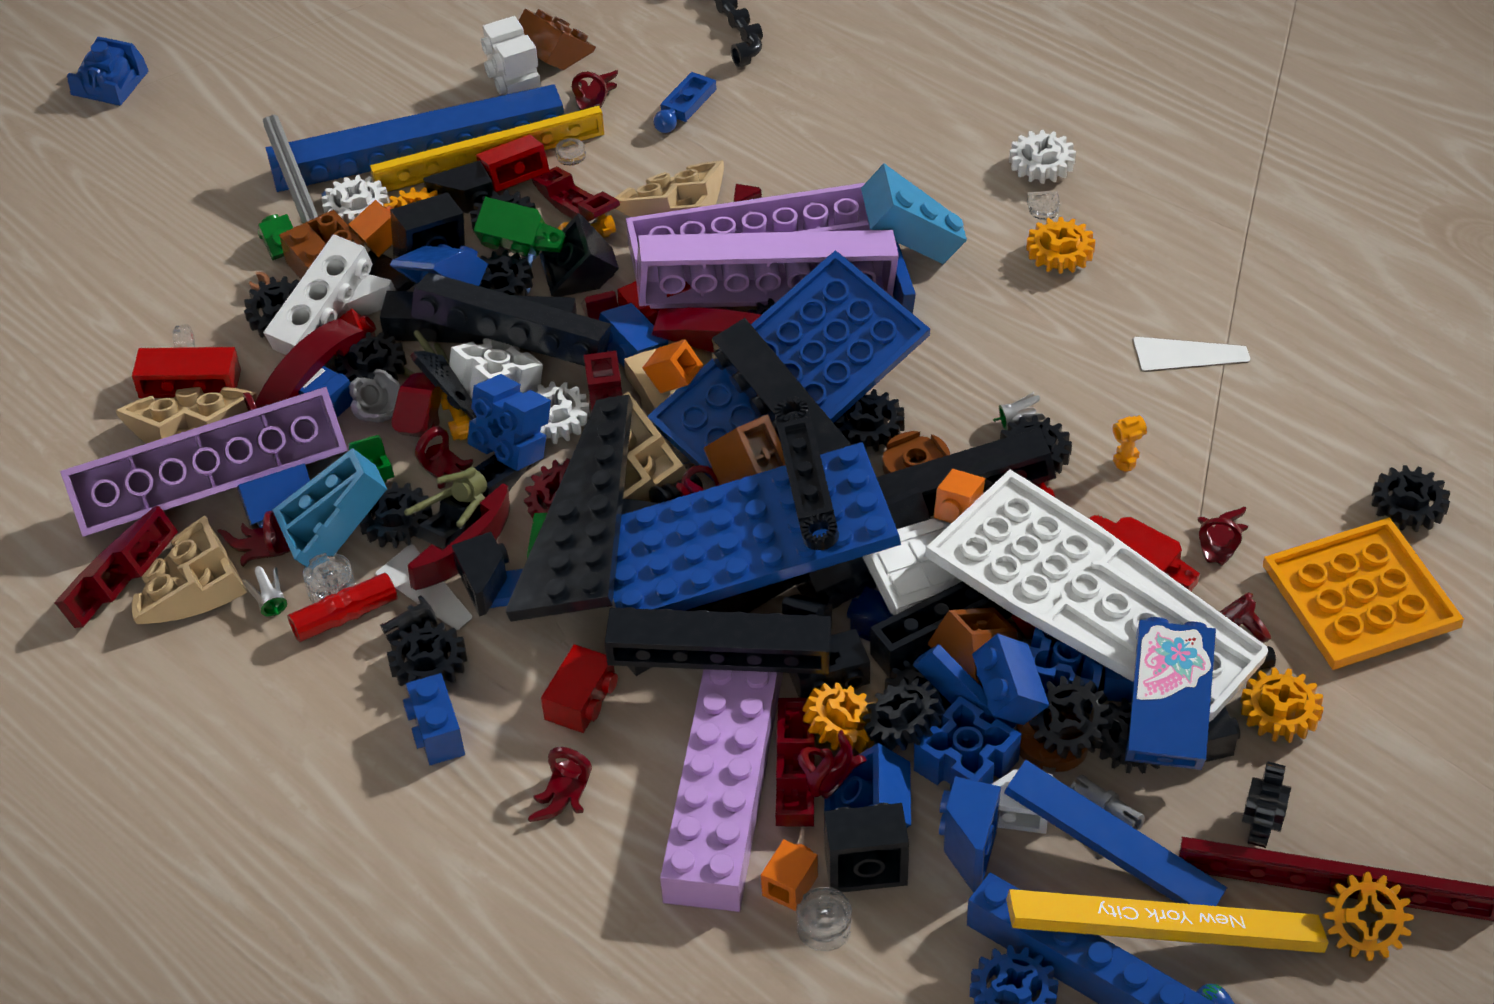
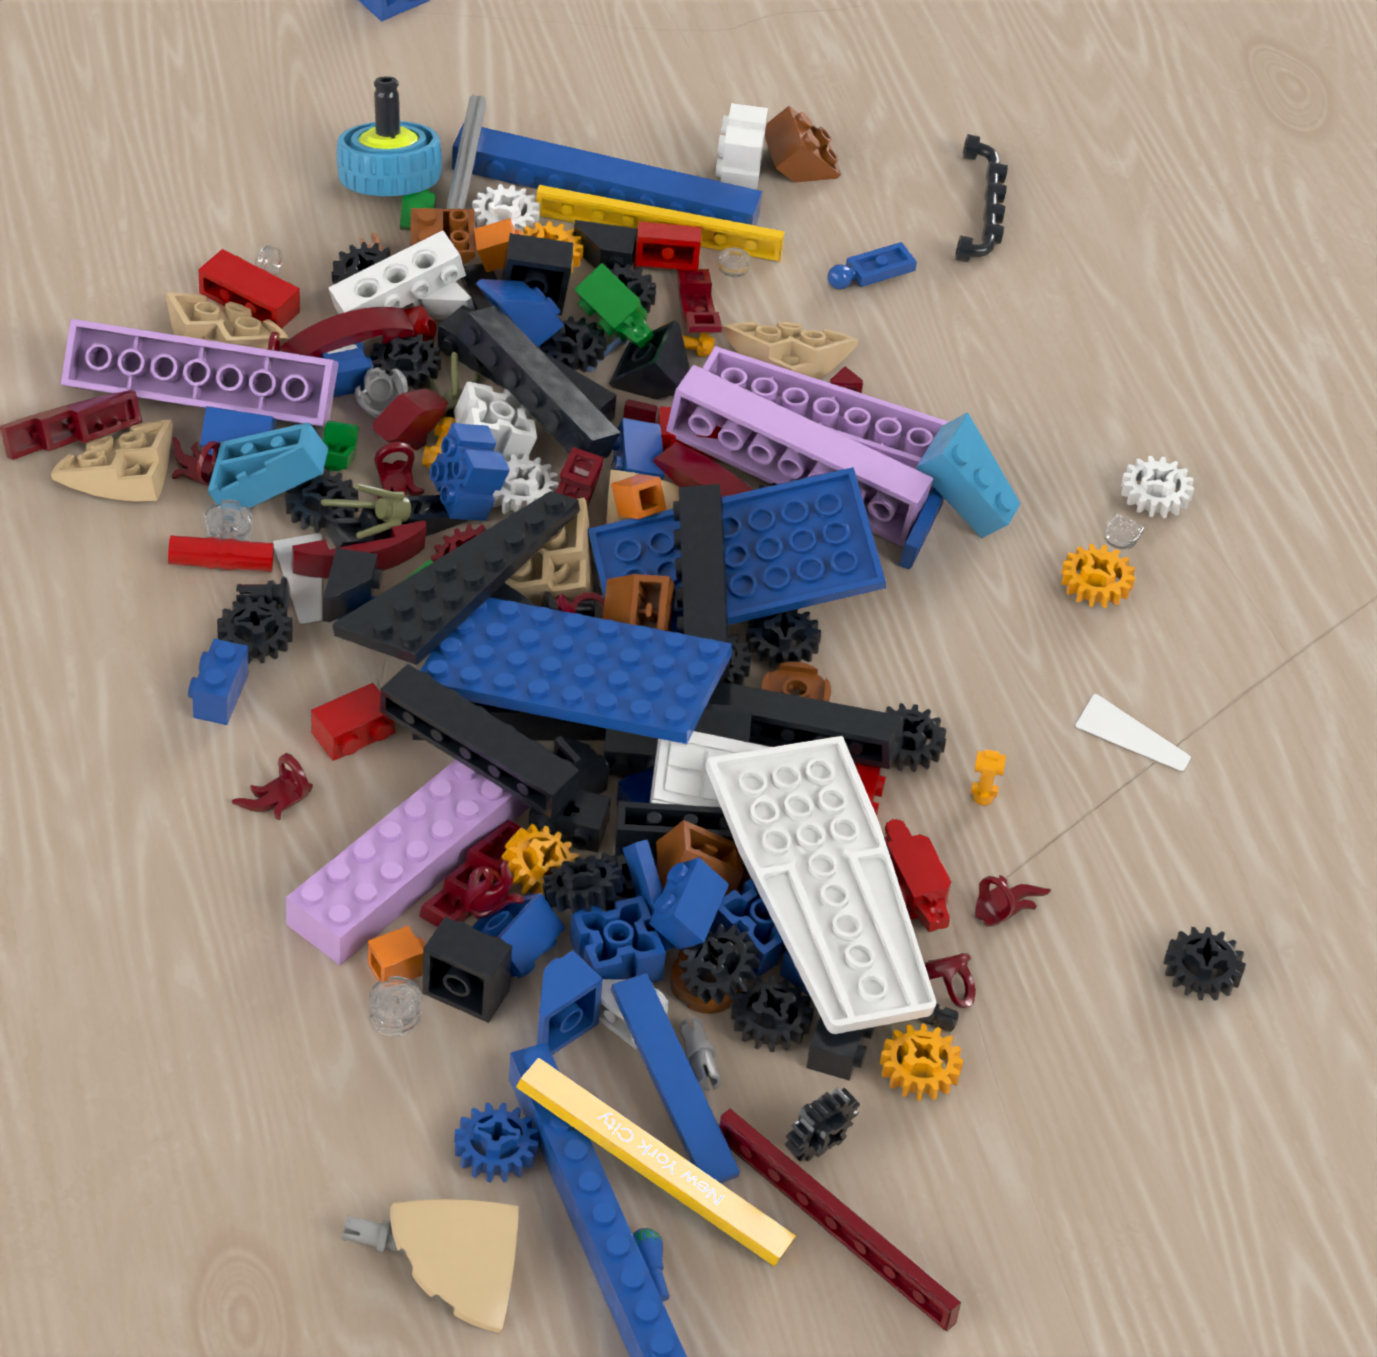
camera: 25 degrees right, 0 degrees up
(224, 200) = (388, 154): none -> dark azure wheel
(271, 599) = (169, 515): flat silver piece -> none
(442, 376) = (443, 400): black piece -> none
(594, 94) = (799, 216): dark red piece -> none
(806, 474) = (654, 641): black plate -> none
(957, 494) = (779, 729): orange brick -> none
(1013, 411) = (923, 698): flat silver piece -> none
(1171, 693) = (811, 988): blue panel -> none
(1362, 593) = (1083, 1015): light orange plate -> none
(1367, 936) = (823, 1271): light orange gear -> none

